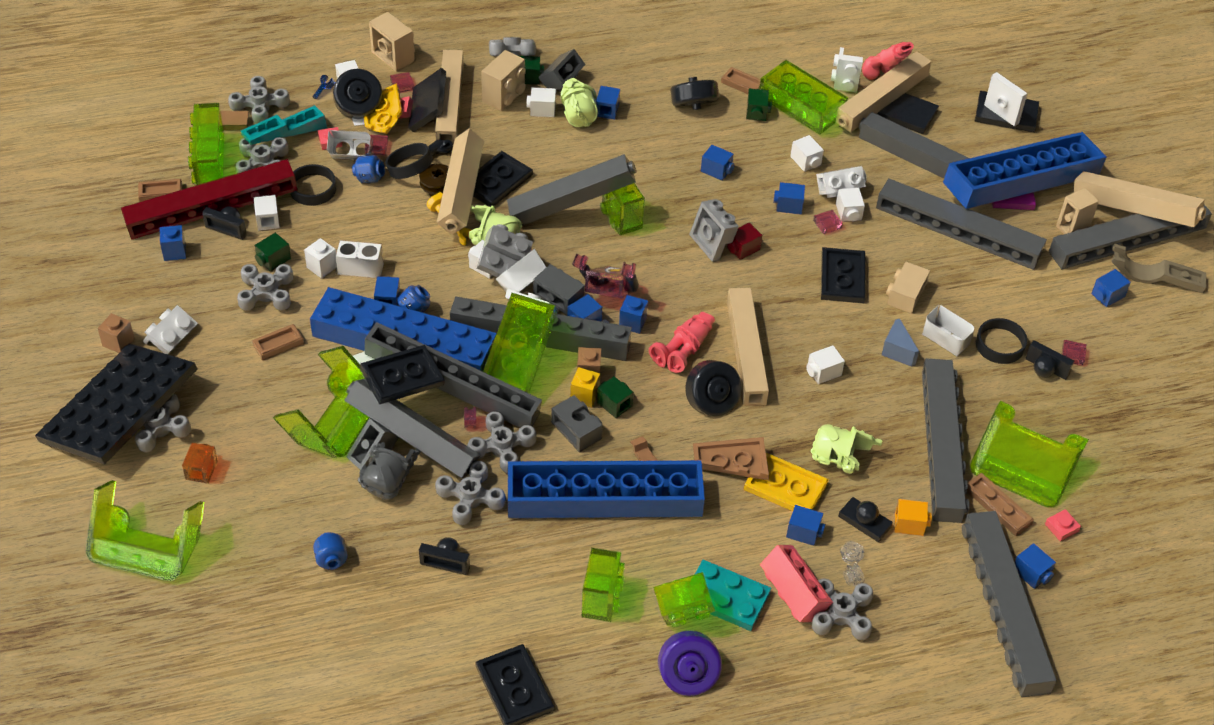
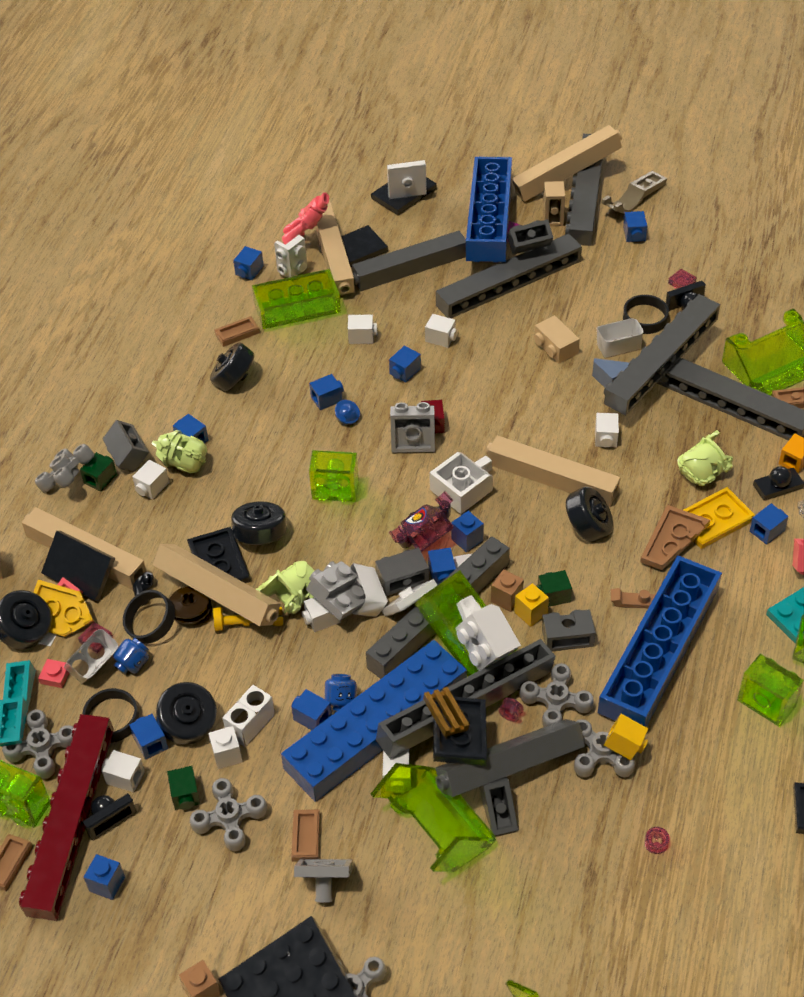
camera: 55 degrees left, 0 degrees up
(170, 330) = (224, 930): white bracket -> none
(200, 463) = (431, 970): clear orange brick -> none
(244, 358) = (323, 871): none -> light grey tile
(304, 212) = (148, 736): none -> blue brick
(330, 551) = (612, 895): blue head -> none
(334, 219) = (186, 713): none -> black wheel
(386, 471) = (545, 802): dark grey helmet -> none
(401, 559) = (656, 832): none -> clear pink bush
(403, 81) = (25, 579): clear pink tile -> none
(425, 349) = (442, 698): none -> pearl gold tile
(445, 556) = (667, 799): black tile -> none
(478, 494) = (626, 737): none -> yellow brick
(502, 348) = (484, 633): none -> white hinge
(503, 80) = (106, 493): tan brick -> none
(538, 173) = (258, 523): none -> black wheel
(572, 190) = (304, 501): dark grey brick -> none
(685, 287) = (462, 480): none -> white hinge
(689, 335) = (516, 505): coral piece -> none
(706, 185) = (347, 412): none -> blue hat
(758, 104) = (277, 333): dark green brick -> none
(821, 51) = (248, 263): none -> blue brick
(828, 222) = (445, 355): clear pink tile -> none
(841, 179) = (411, 322): white brick -> none
(843, 275) = (510, 374): black tile -> none
(941, 361) = (661, 354): none -> dark grey brick
(1003, 207) = (530, 236): none -> dark grey brick

